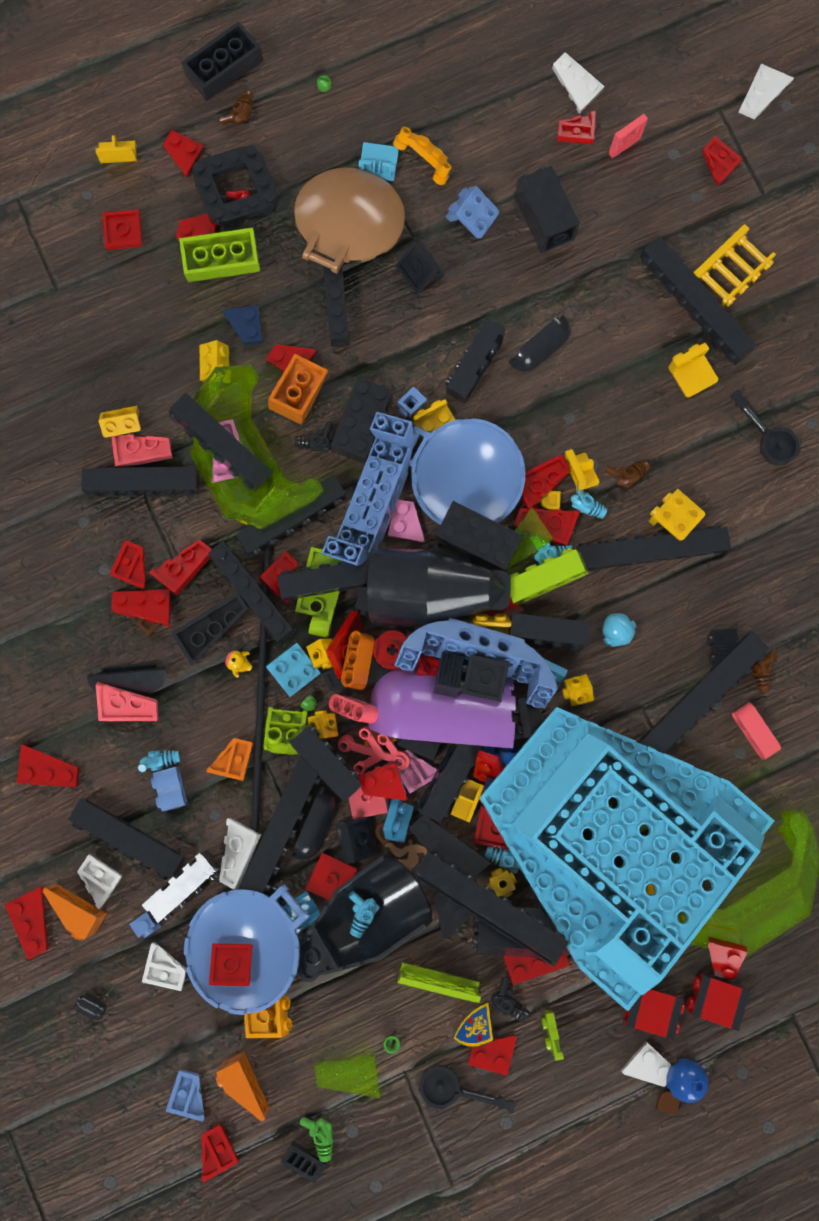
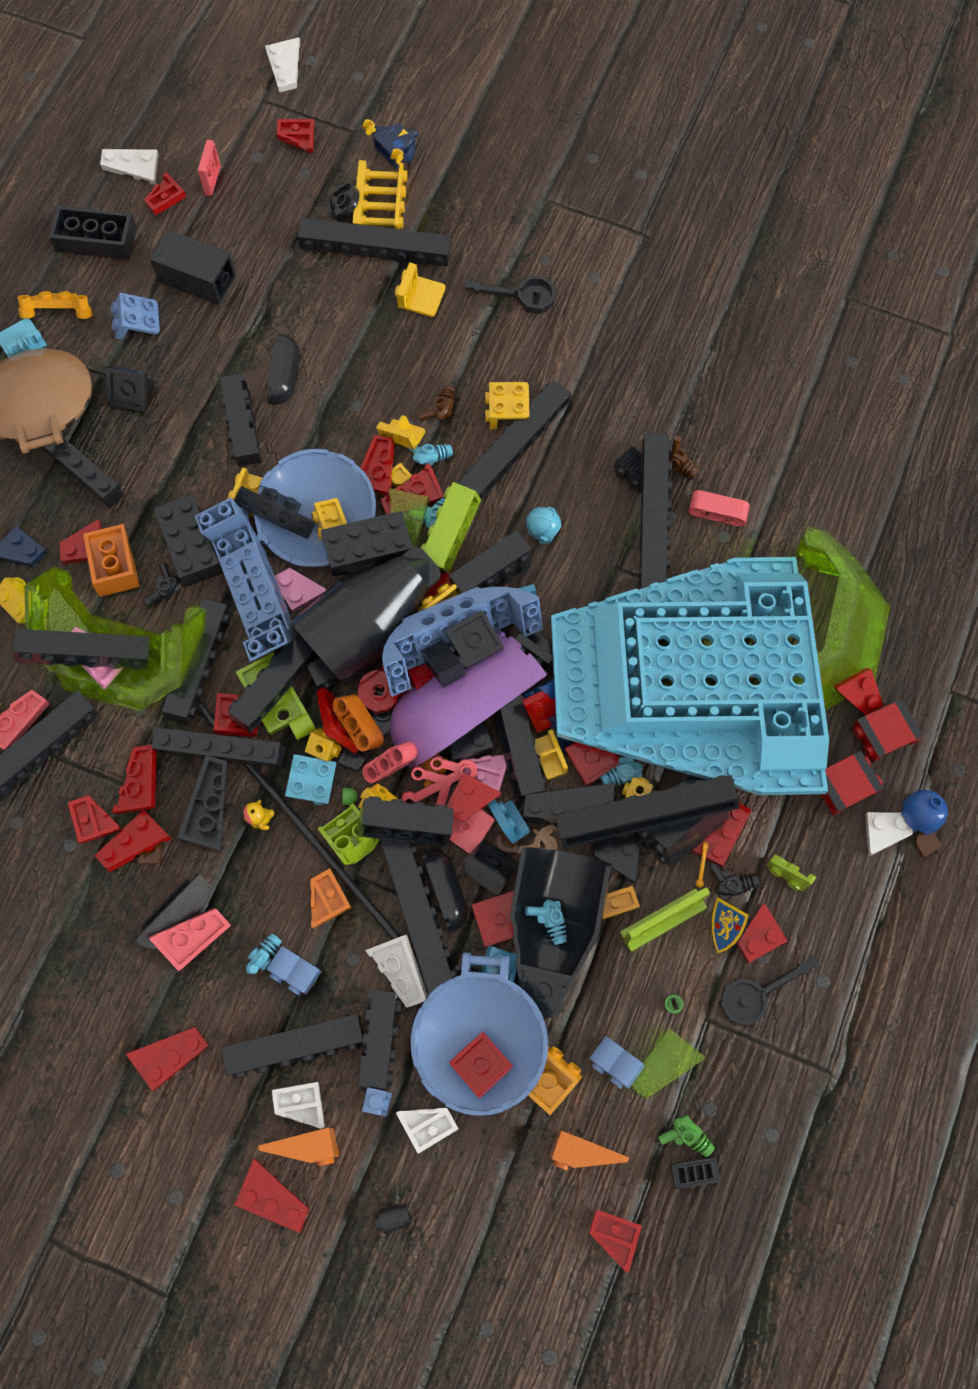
camera: 40 degrees left, 10 degrees down
(186, 1096) = (546, 1214): medium blue wing -> none
(318, 1047) = (616, 1063): none -> medium blue brick
(412, 397) = (215, 489): medium blue brick -> none
(422, 945) = (620, 902): none -> light orange plate
(440, 453) = (276, 509): none -> black bracket
(471, 491) = (328, 515): none -> yellow bracket
(486, 980) = (700, 883): none -> light orange hinge
(499, 118) = (93, 232): none -> black brick
(578, 690) = (556, 594): yellow brick -> none
(703, 248) = (344, 201): none -> black tile
(785, 229) = (393, 142): none -> dark blue torso

